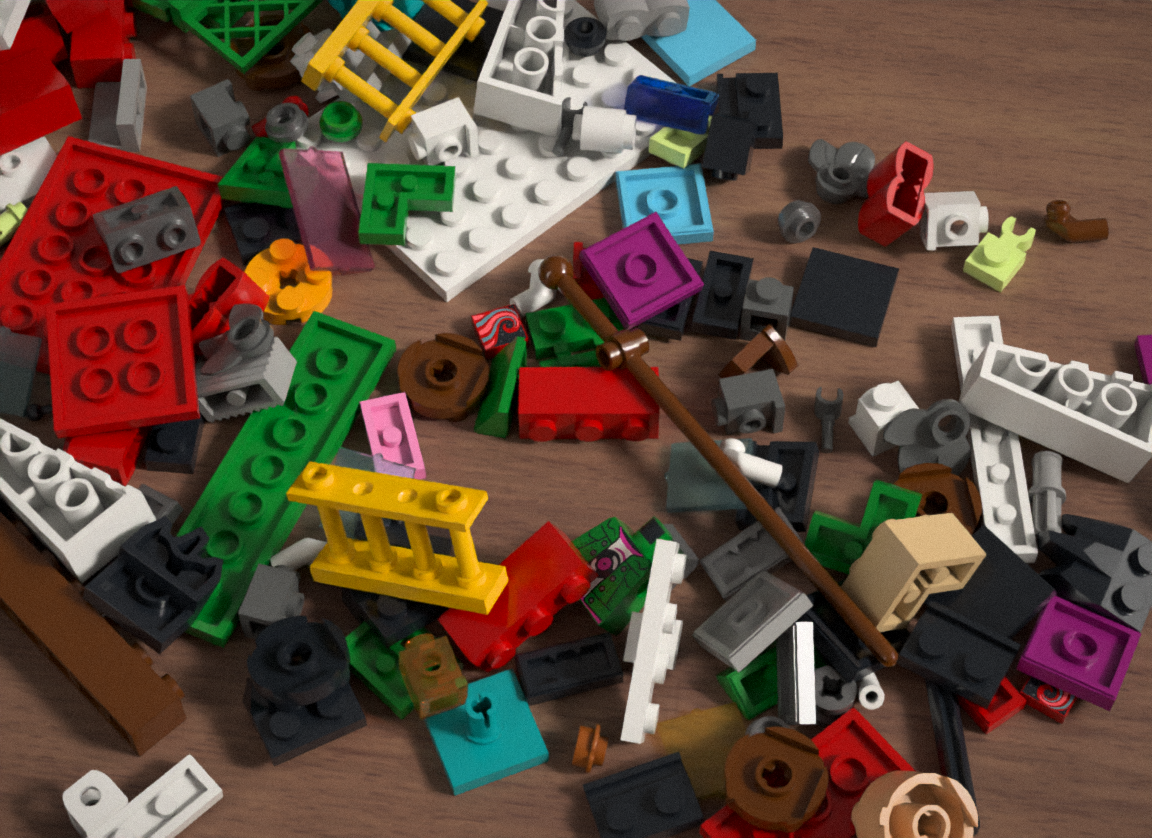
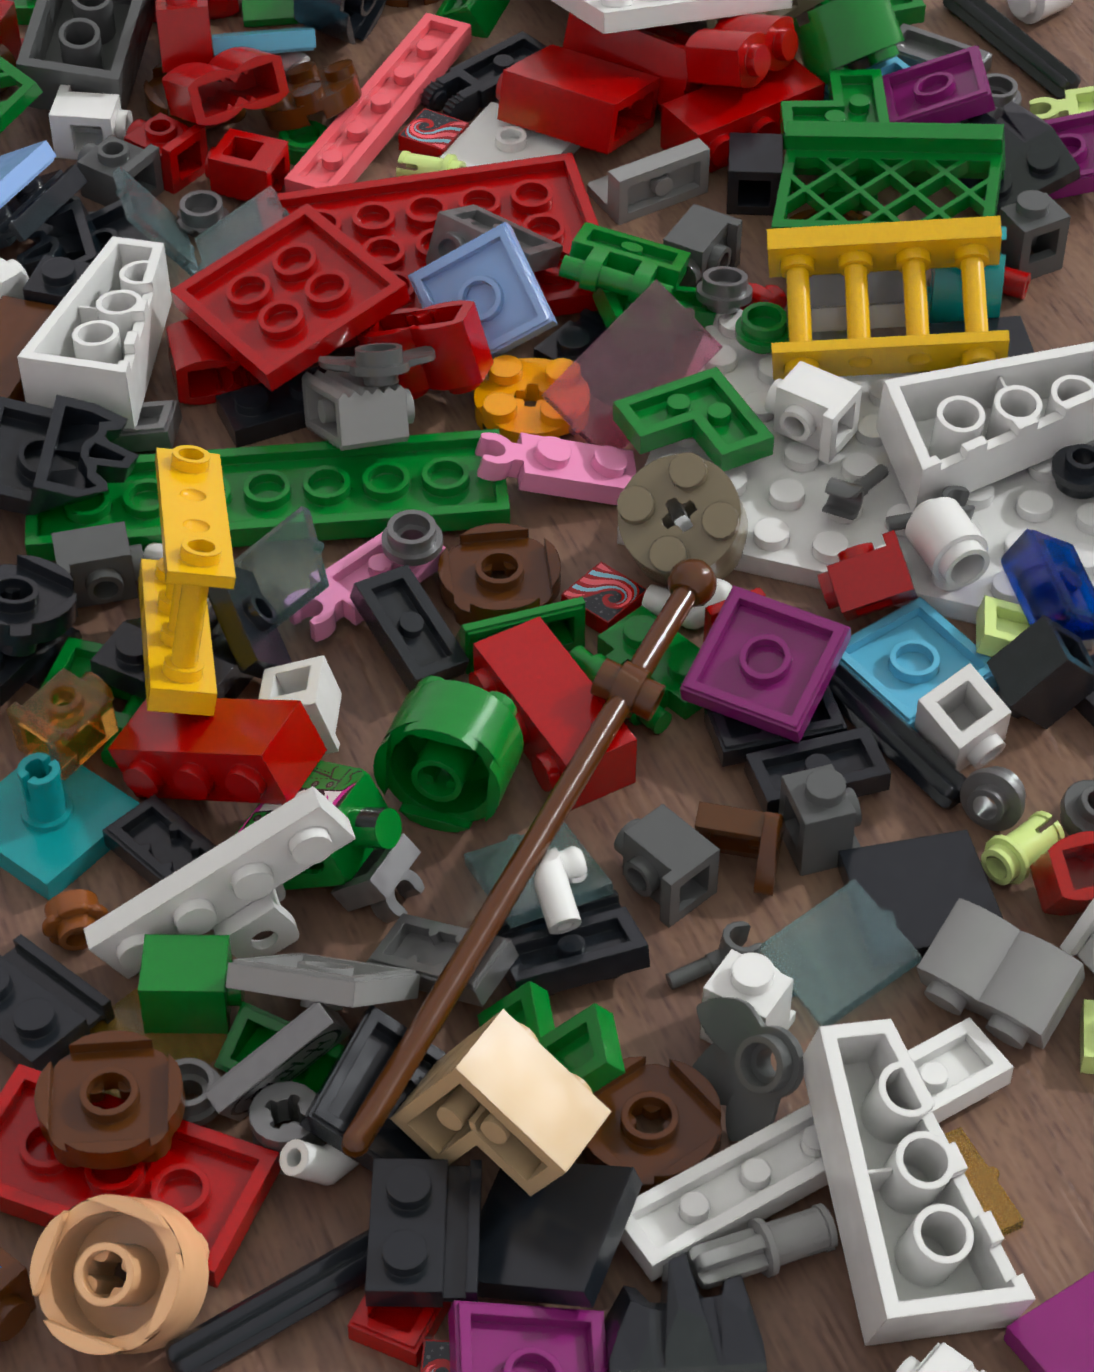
camera: 60 degrees right, 10 degrees down
(168, 50) = (753, 173): none -> black brick
(188, 244) = (498, 280): none -> light blue tile
(215, 160) = (622, 262): none -> green plate
(375, 294) = (557, 466): none -> bright pink plate
(396, 394) = (412, 538): none -> flat silver plate
(464, 446) = (408, 627): none -> black plate
(494, 272) = (677, 488): none -> dark tan brick
(503, 529) = (315, 687): none -> white brick
(521, 161) = (847, 497): none -> dark grey hand
(600, 184) = (868, 579): none -> red brick
(601, 469) = (449, 753): none -> green brick
(695, 700) = (186, 984): none -> green brick
(733, 242) = (897, 738): none -> black axle
(743, 201) = (964, 719): none -> white brick
(844, 235) = (1010, 856): none -> yellowish green pin
(863, 352) = (841, 953): none -> clear light blue piece
(935, 286) = (1000, 974): none -> light grey brick

